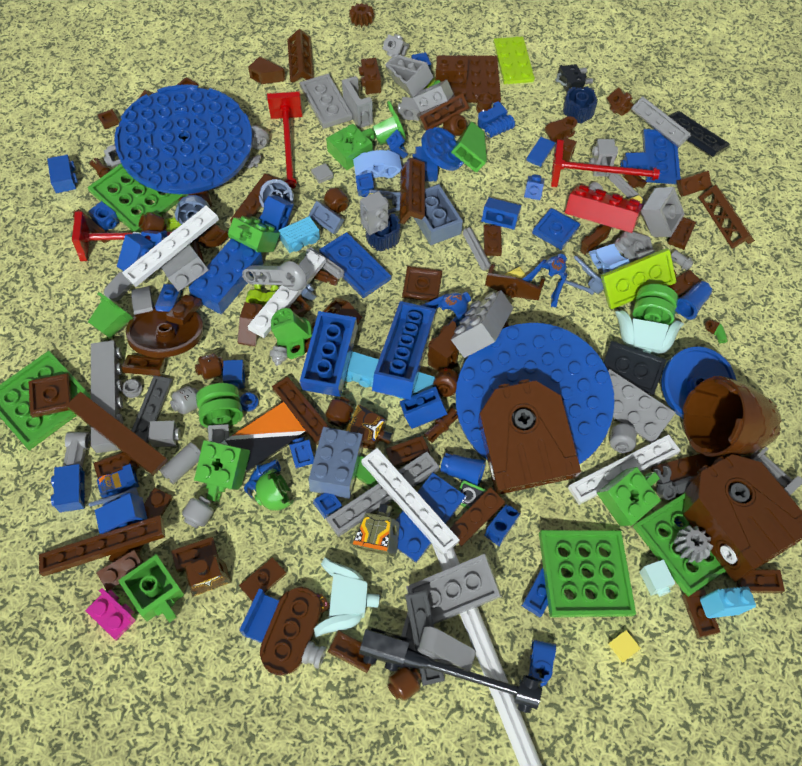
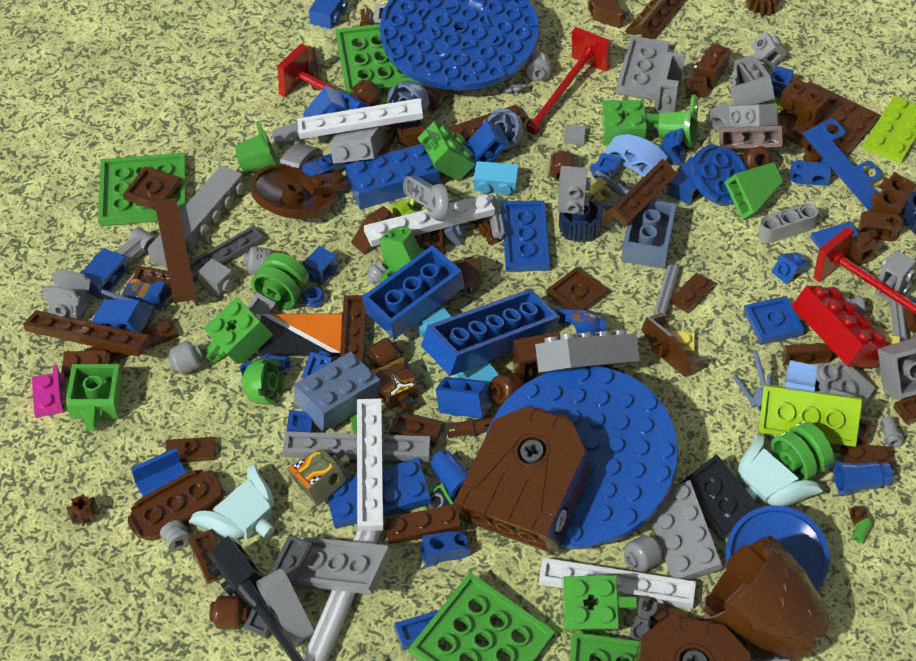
camera: 40 degrees right, 10 degrees down
(61, 525) = (70, 295): none -> light grey piece
(104, 216) = (330, 64): blue brick -> none
(132, 388) = (225, 225): light grey plate -> none
(143, 365) = (251, 211): reddish brown plate -> none
(181, 463) = (205, 311): light grey pin -> none
(193, 552) = (153, 391): reddish brown plate -> none
(207, 575) = (146, 411): reddish brown torso -> none
(209, 366) = (304, 244): reddish brown head -> none
(220, 691) = (82, 509): none -> reddish brown gear
(326, 217) = (537, 176): sand blue plate -> none
(373, 93) = (696, 86): none -> reddish brown plate
(499, 126) = (810, 186): blue piece -> none
(501, 213) = (723, 270): blue brick -> none
(509, 158) = (788, 223): none -> light grey beam
(516, 104) = (849, 174): none -> blue piece
(552, 105) = (893, 195): none -> reddish brown brick
(556, 266) = (725, 348): blue piece -> none

